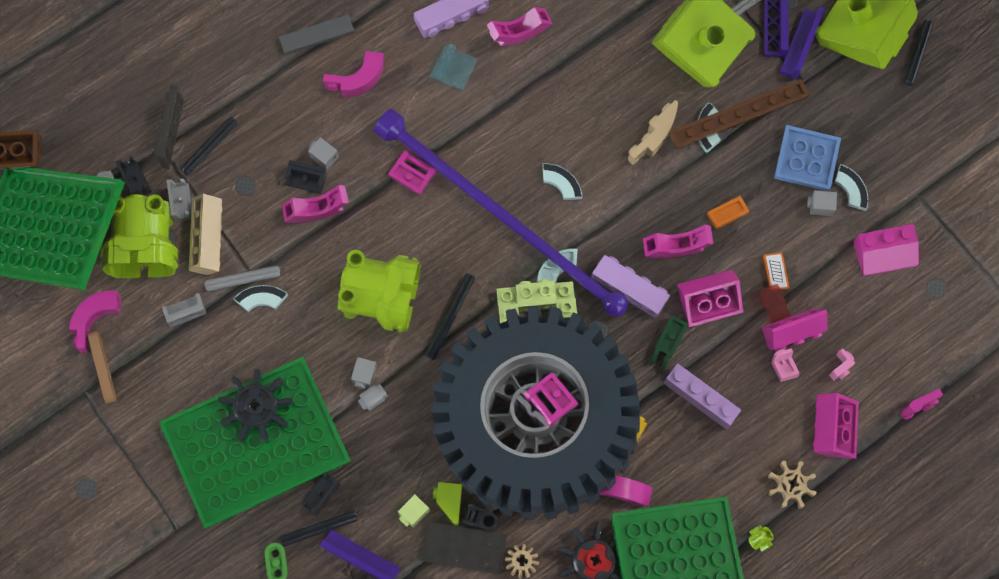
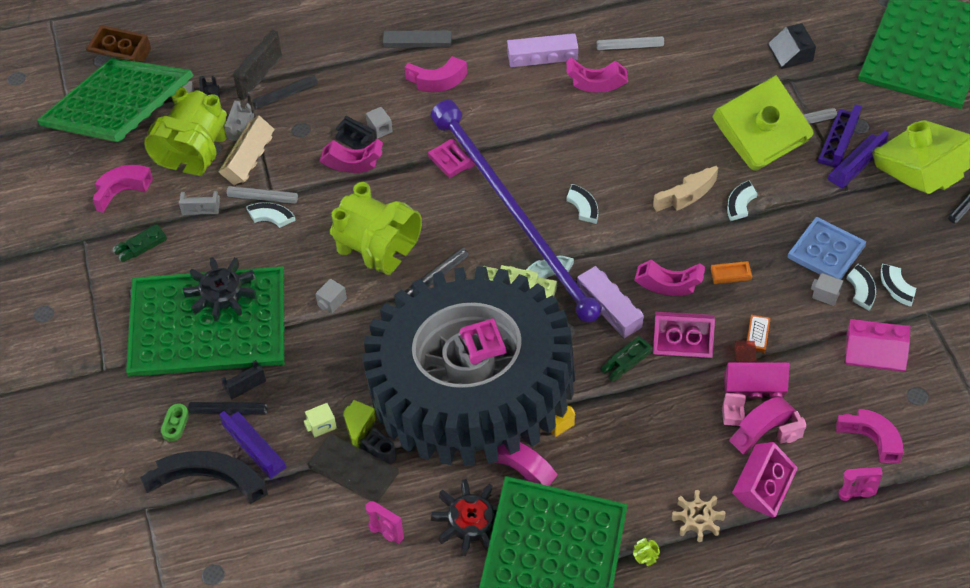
camera: 25 degrees right, 20 degrees down
(102, 367) = (107, 223): medium nougat beam -> none
(146, 376) = (140, 243): none -> dark green hinge
(372, 397) = (328, 317): light grey brick -> none
(453, 67) = (525, 92): clear light blue hinge -> none
(527, 557) = (401, 495): tan gear -> none
(702, 396) = (640, 411): lavender brick -> none
(738, 114) = (773, 195): reddish brown plate -> none
(816, 371) = (763, 418): none -> dark pink arch
(881, 174) = (895, 284): none -> light aqua tile
(922, 341) = (878, 429): none -> dark pink arch

